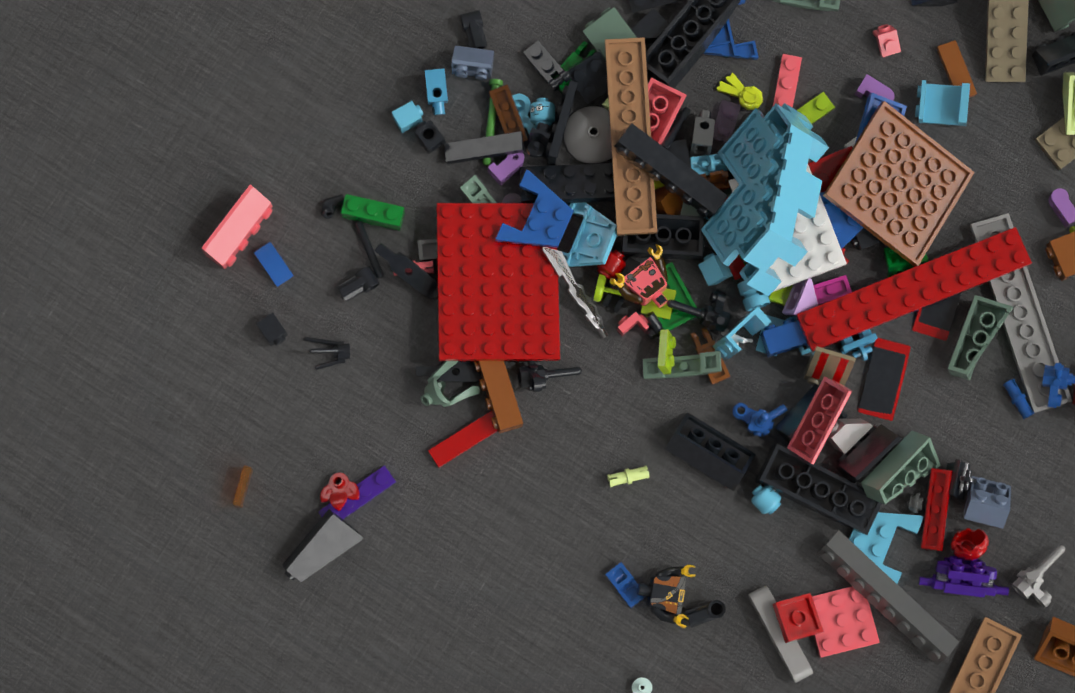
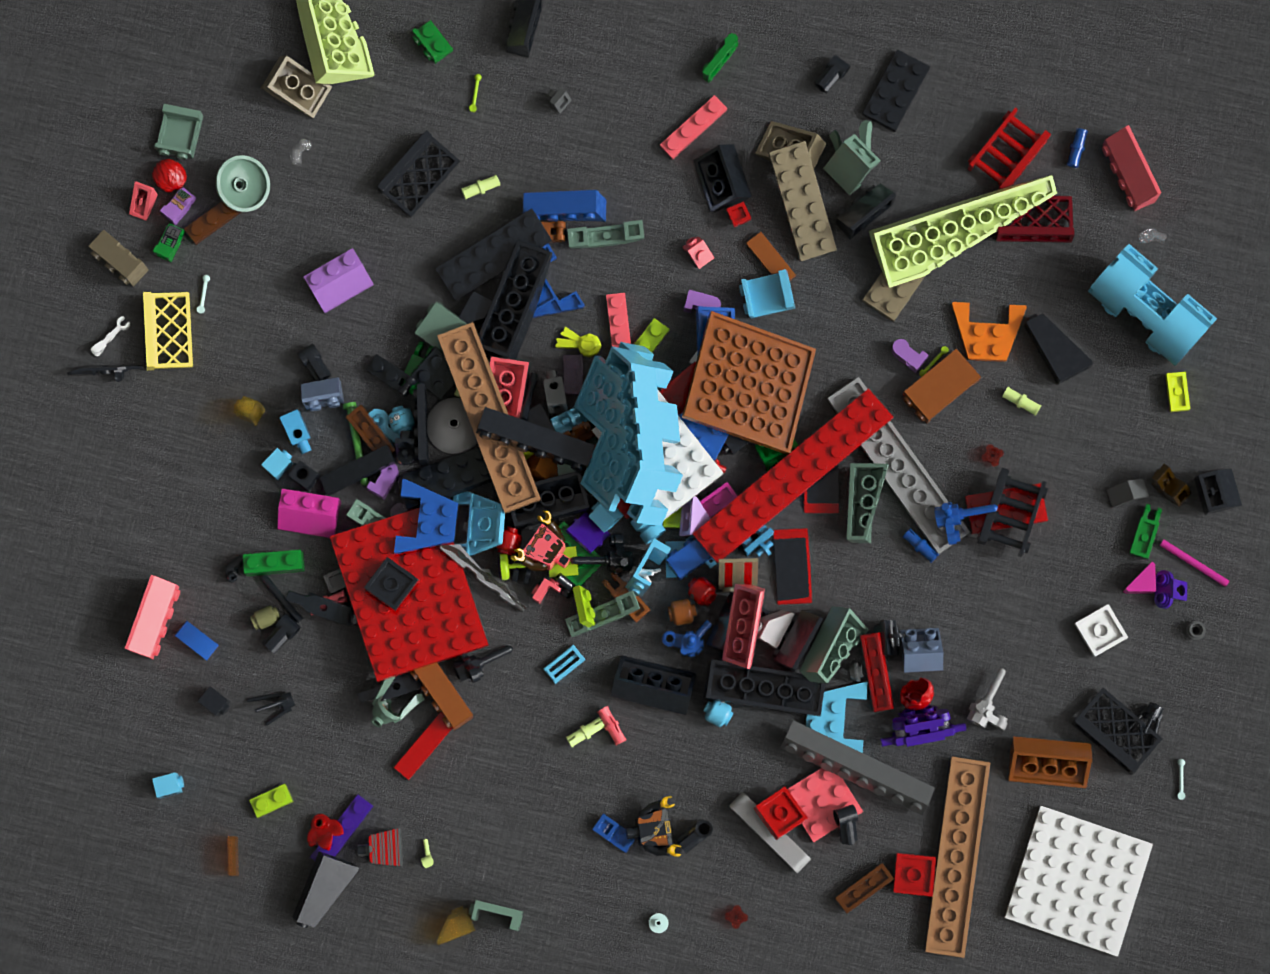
camera: 10 degrees left, 0 degrees up
(201, 396) = (168, 785): none -> medium azure brick
(297, 444) = (271, 800): none -> lime plate
(347, 263) = (265, 617): none -> olive brick
(393, 526) = (384, 848): none -> torso
(396, 55) = (249, 410): none -> clear yellow slope
(422, 174) = (308, 513): none -> dark pink slope
(432, 553) = (427, 861): none -> yellowish green hand
(441, 626) = (456, 925): none -> clear yellow slope
(483, 268) = (391, 584): none -> black plate
(487, 622) = (515, 914): none -> sand green panel
(612, 409) = (559, 658): none -> medium azure tile
(656, 478) = (611, 725): none -> coral pin
(691, 281) = (587, 533): none -> dark purple piece
(760, 388) = (681, 612): none -> dark orange head
(787, 374) = (702, 591): none -> red head
(860, 646) = (846, 821): none -> black piece
(939, 16) = (738, 214): none -> red tile

